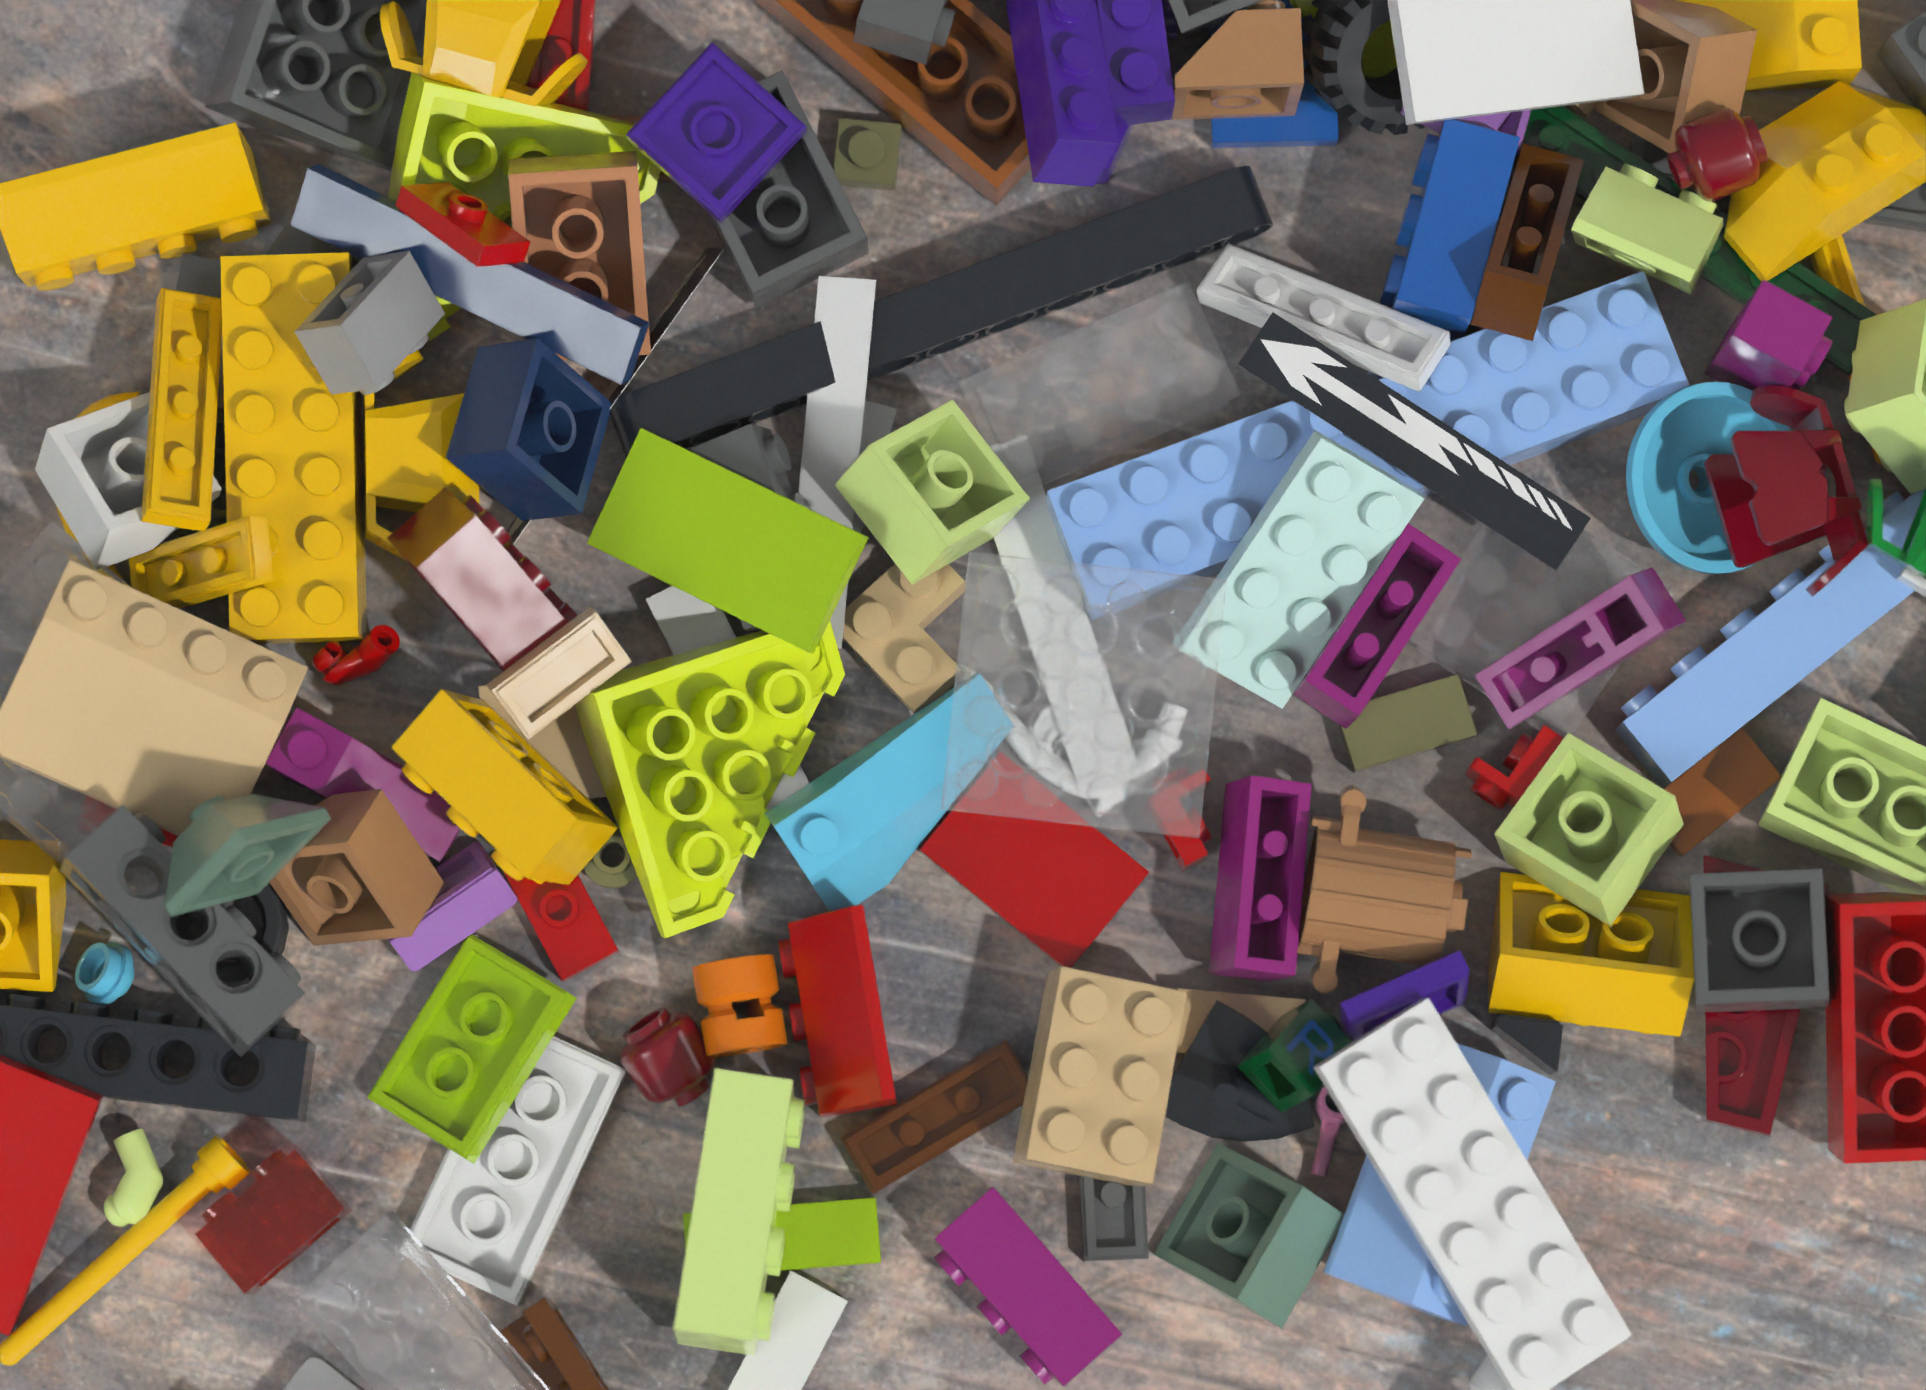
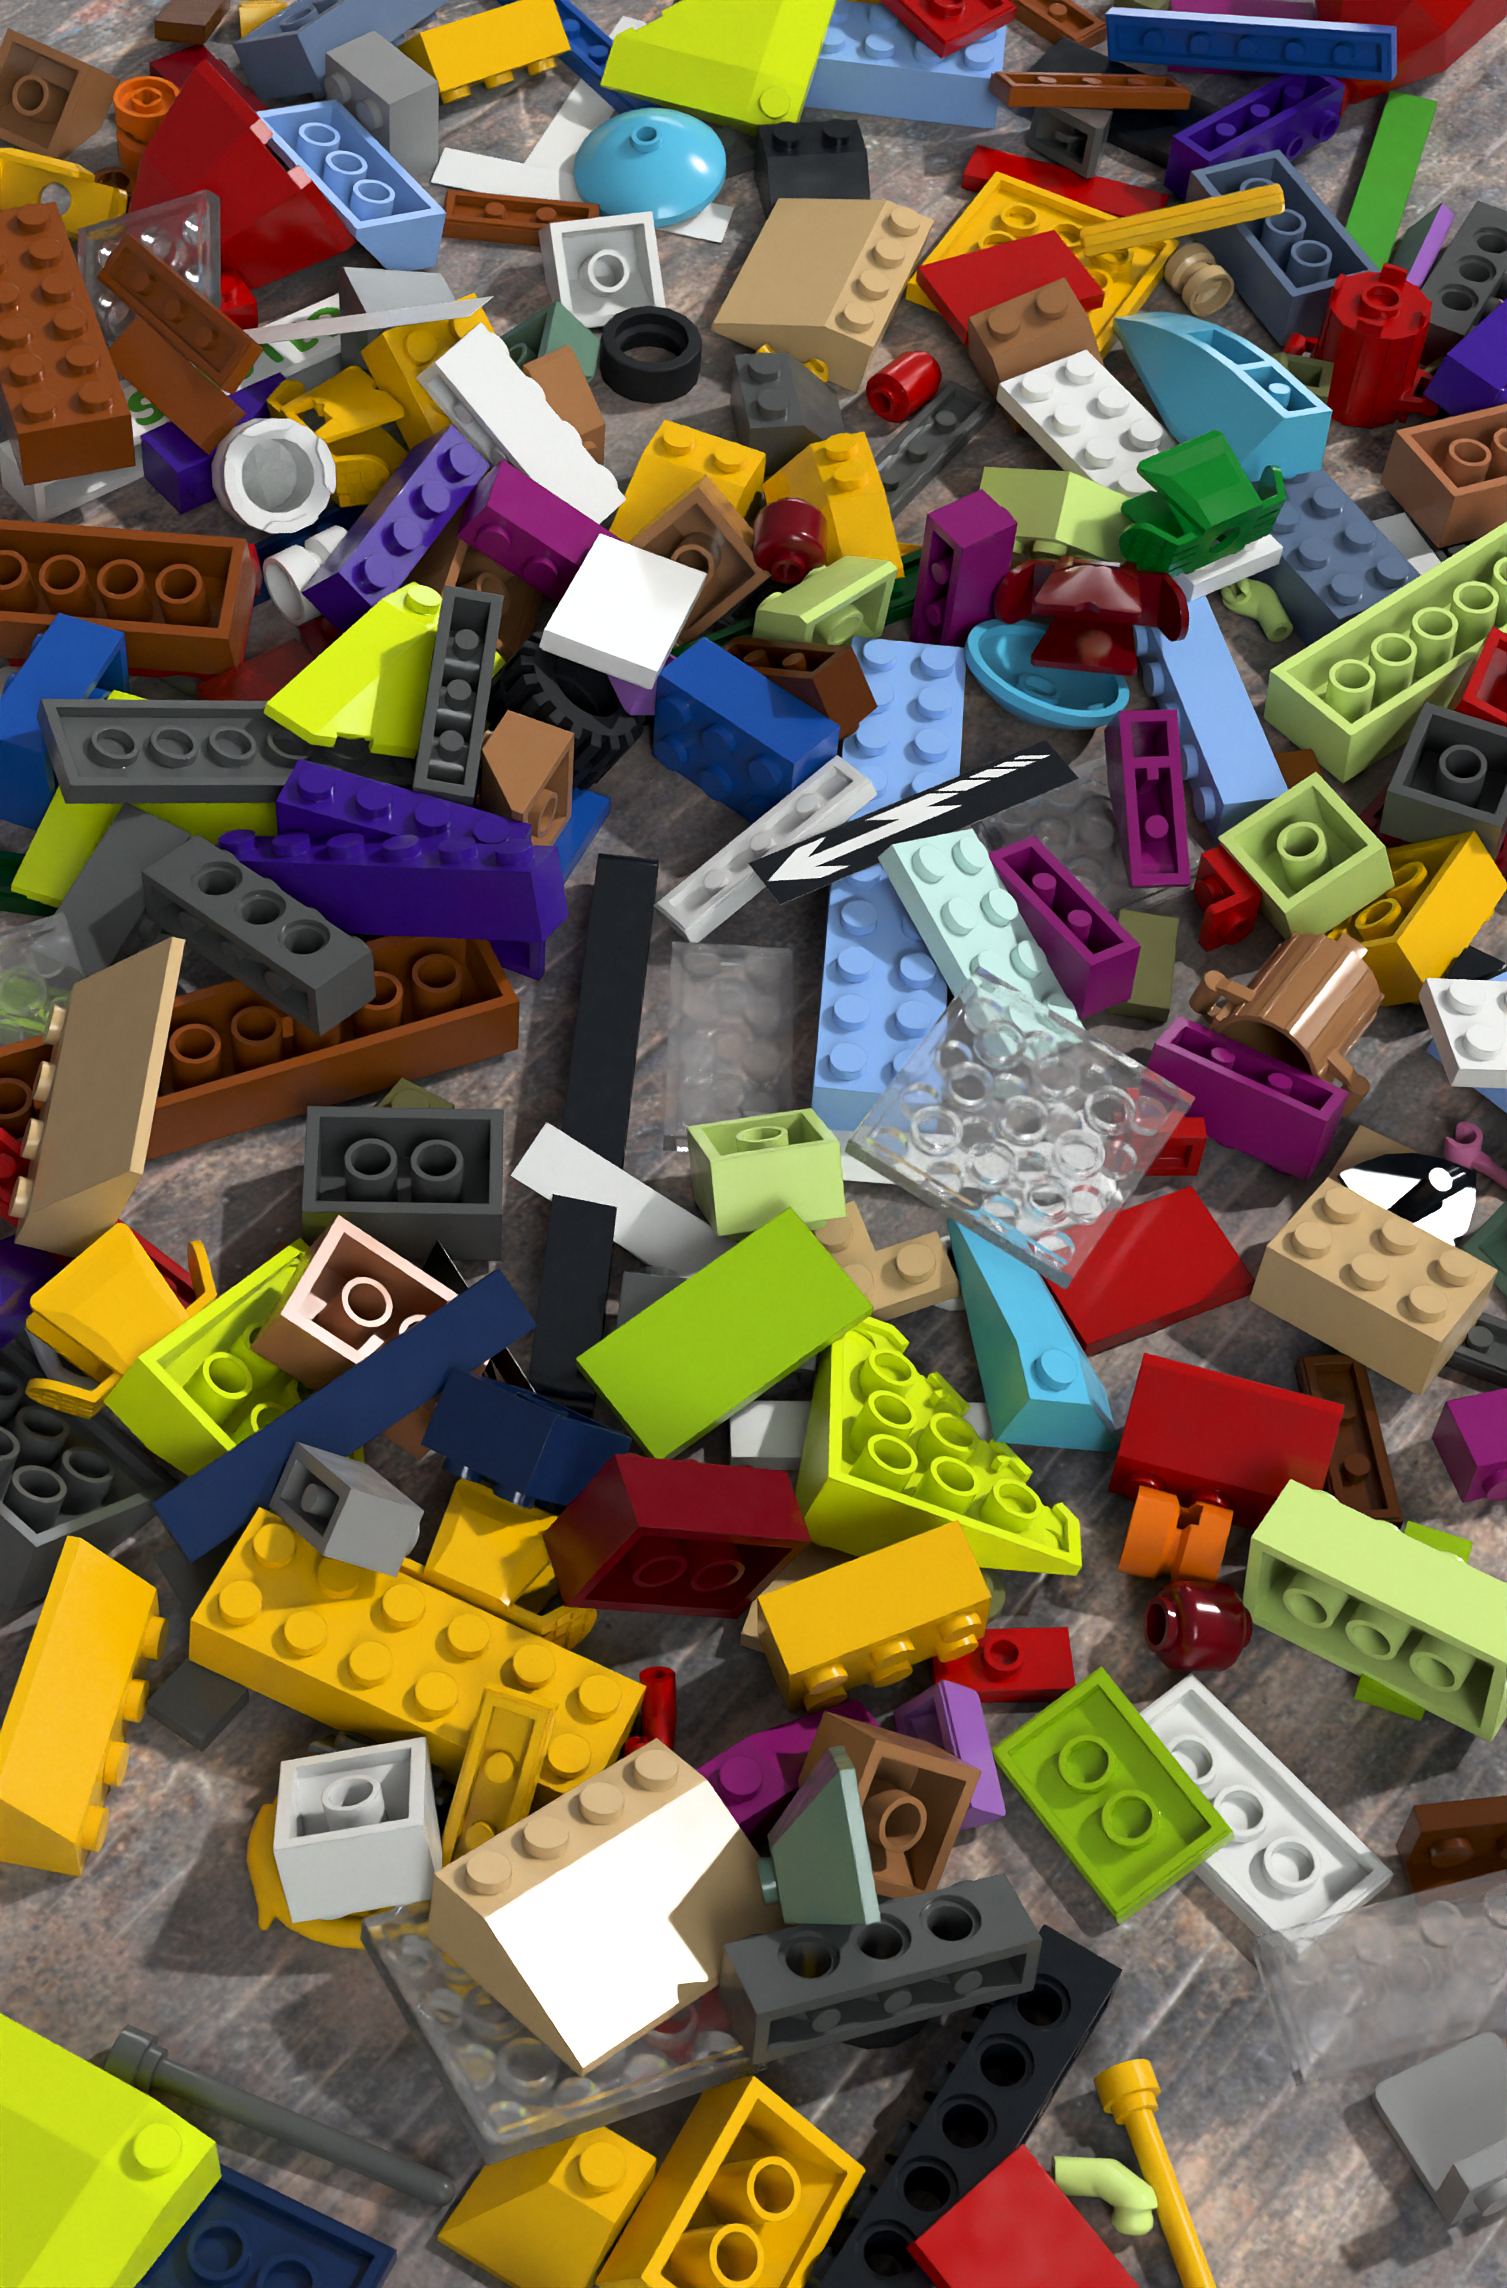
camera: 70 degrees left, 30 degrees down
(105, 972) = (850, 2114): medium azure plate -> none
(182, 410) = (324, 1735): yellow tile -> none
(271, 1220) = (1213, 2061): clear red brick -> none
(462, 223) = (296, 1382): red plate -> none
(558, 673) = (791, 1499): tan tile -> none
(716, 132) = (334, 1167): dark purple tile -> none
(1290, 1049) = (1420, 1127): dark green brick -> none
(1440, 981) = (1403, 1038): dark purple tile -> none

